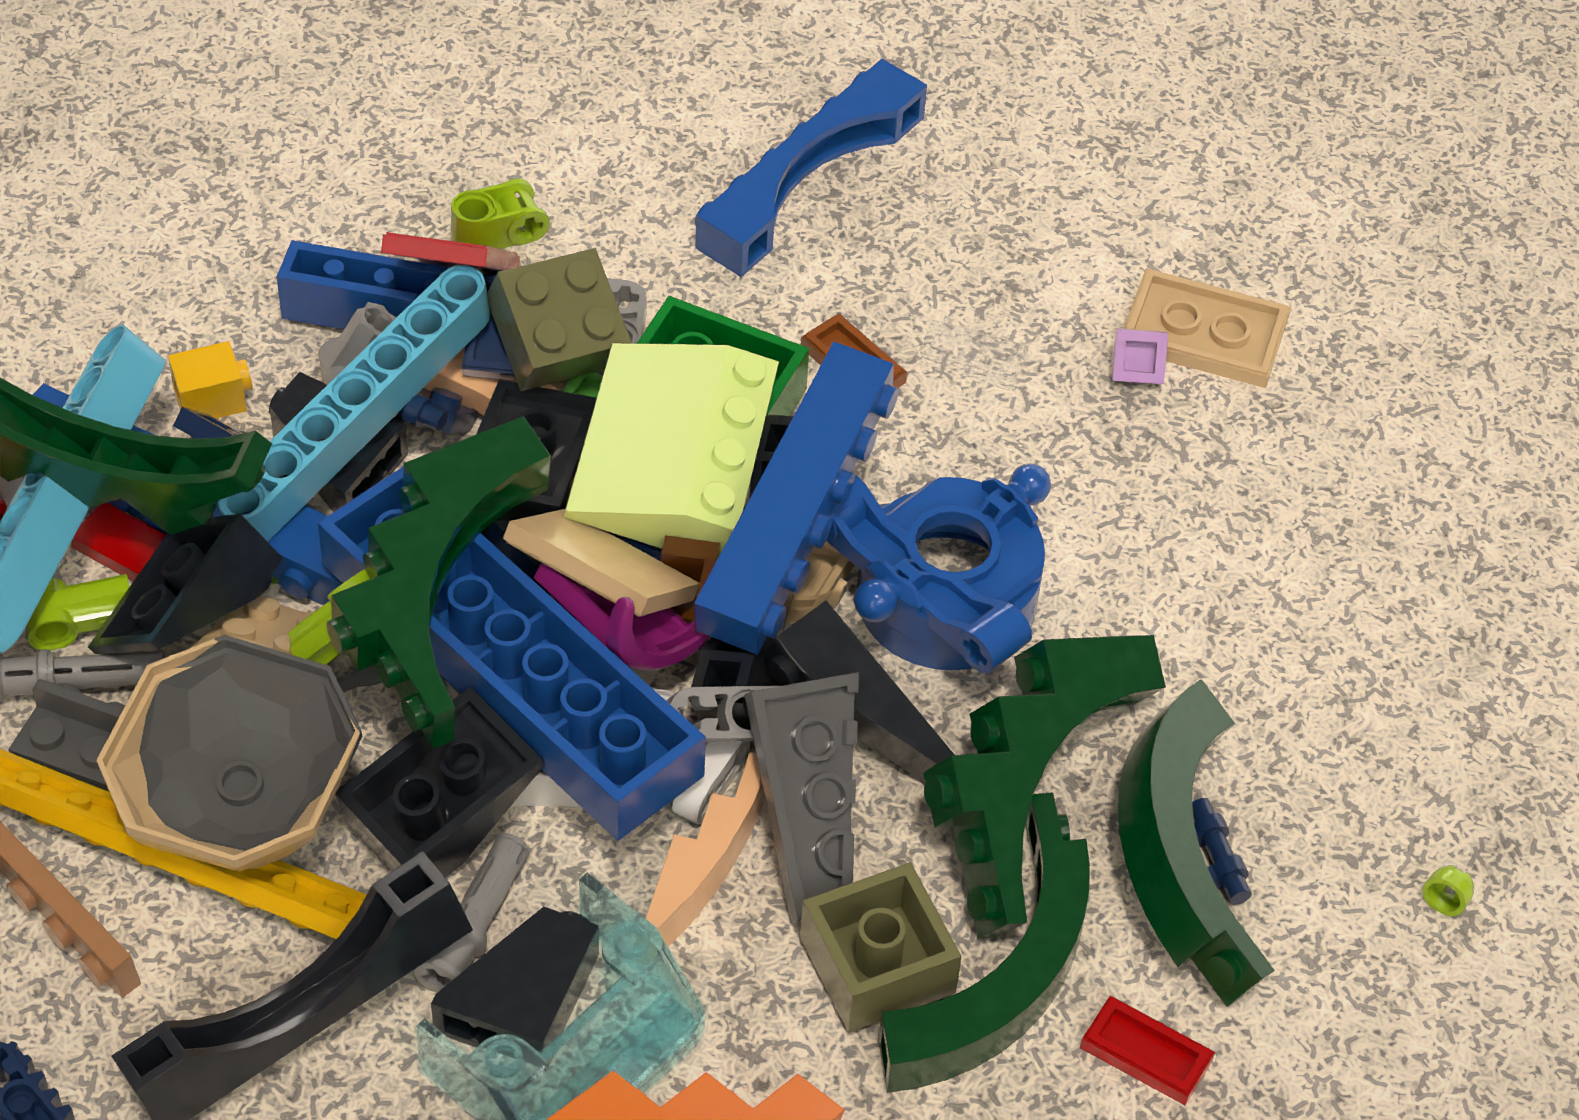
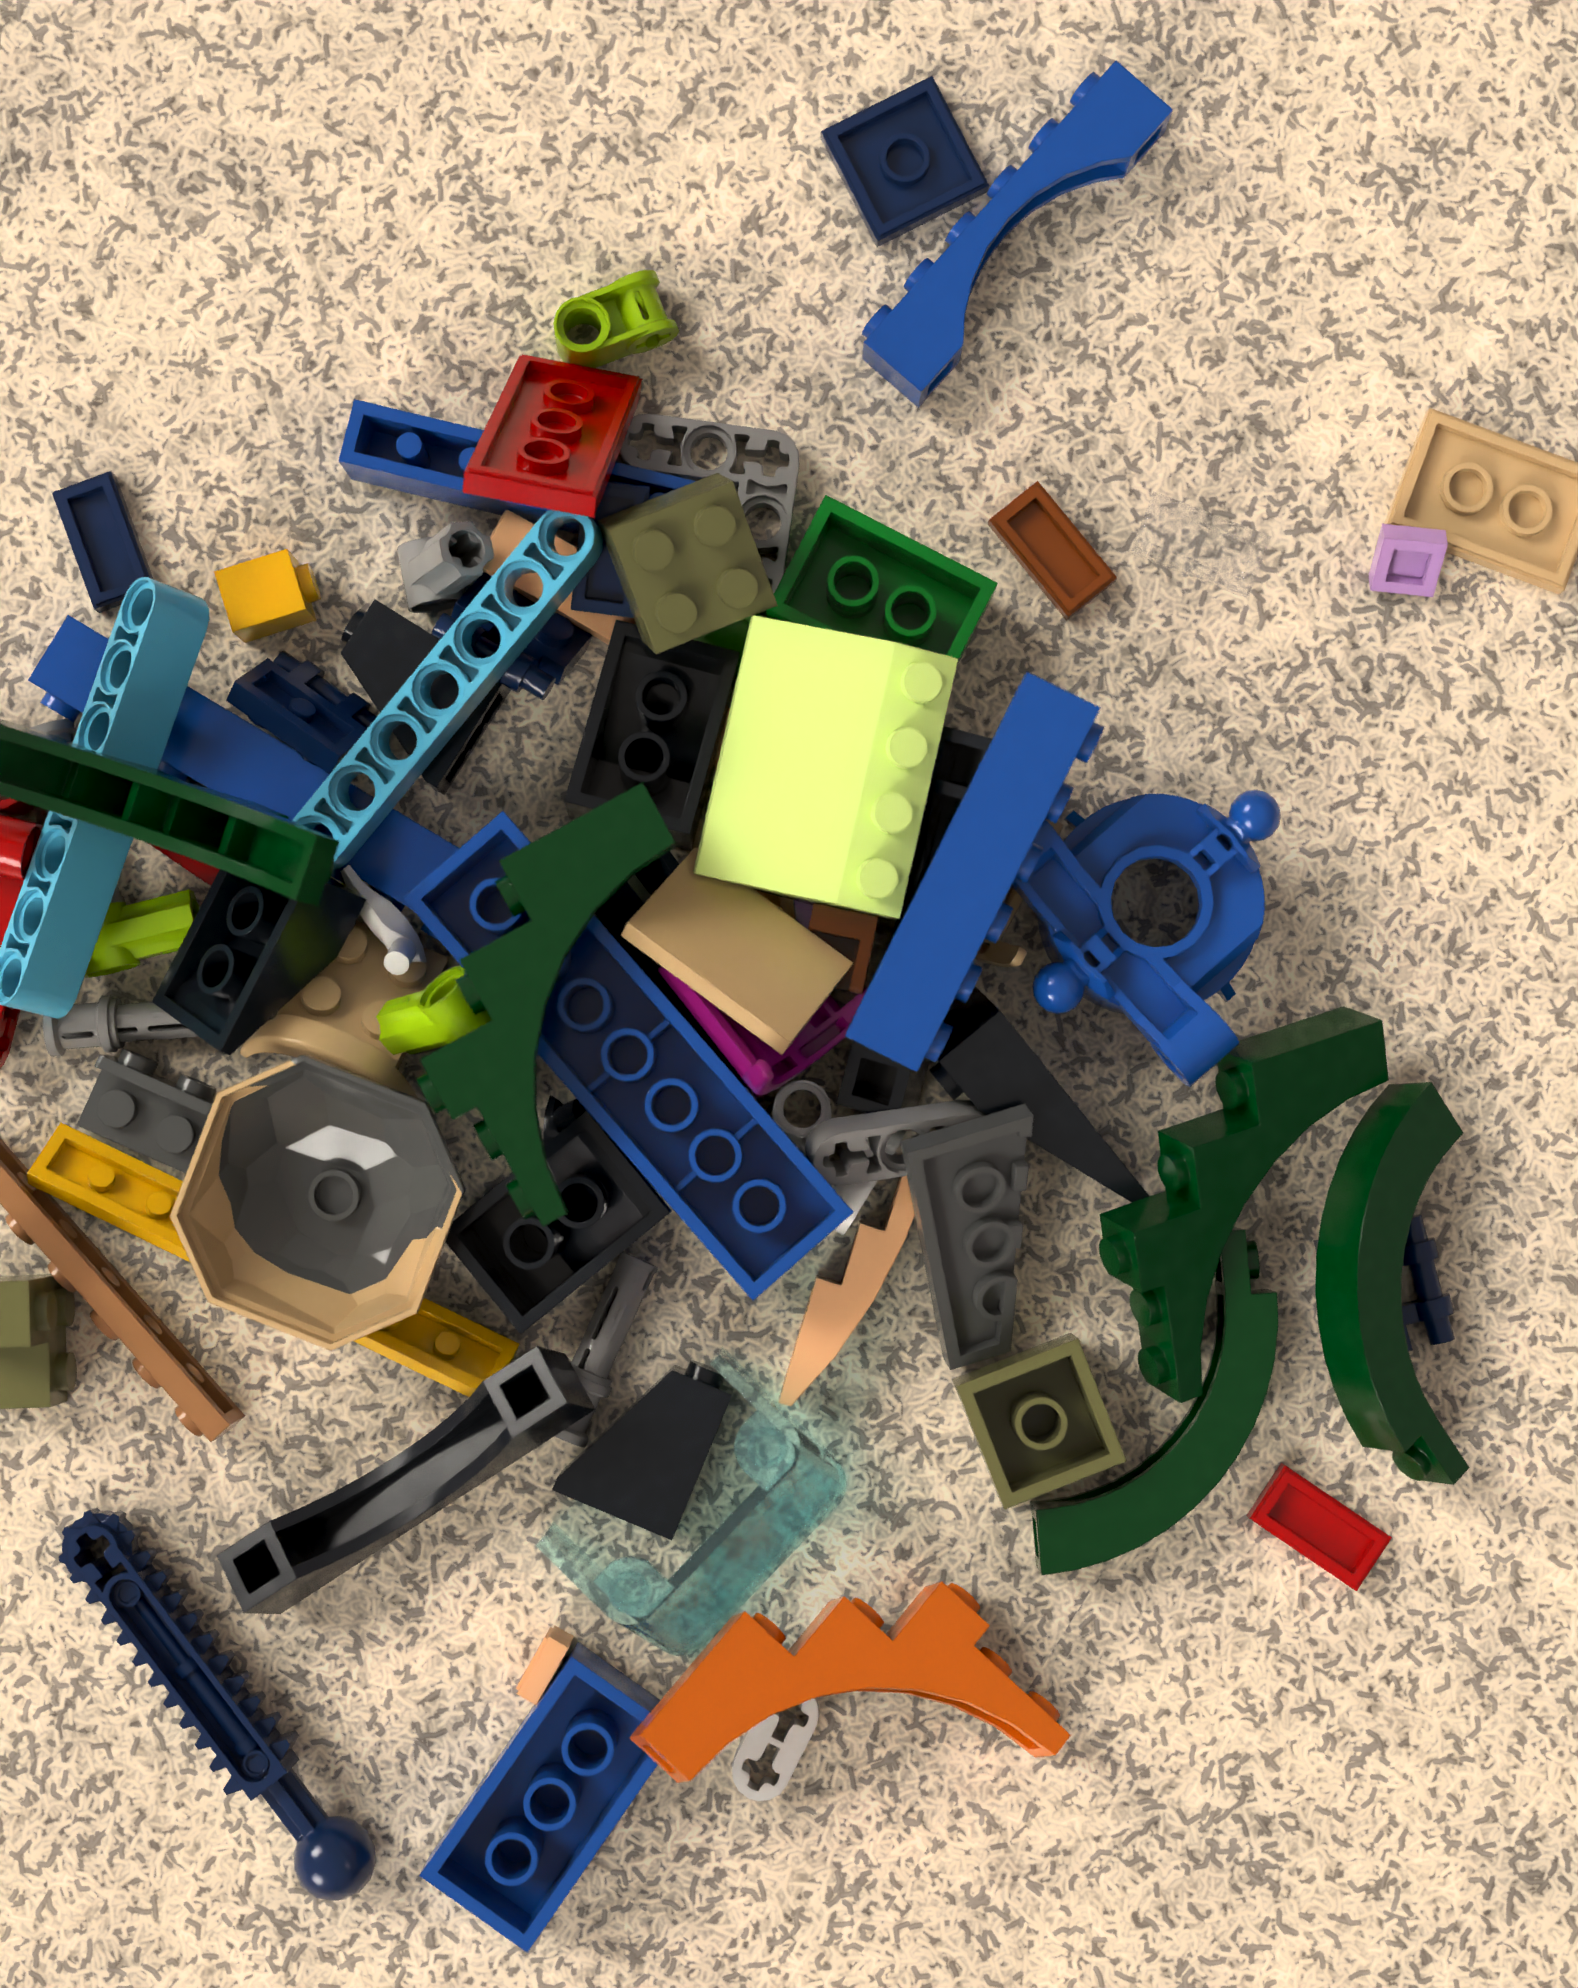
camera: 10 degrees right, 35 degrees up
(67, 347) = (102, 538): none -> dark blue tile
(298, 586) = (388, 925): none -> white bar
(722, 131) = (904, 161): none -> dark blue tile

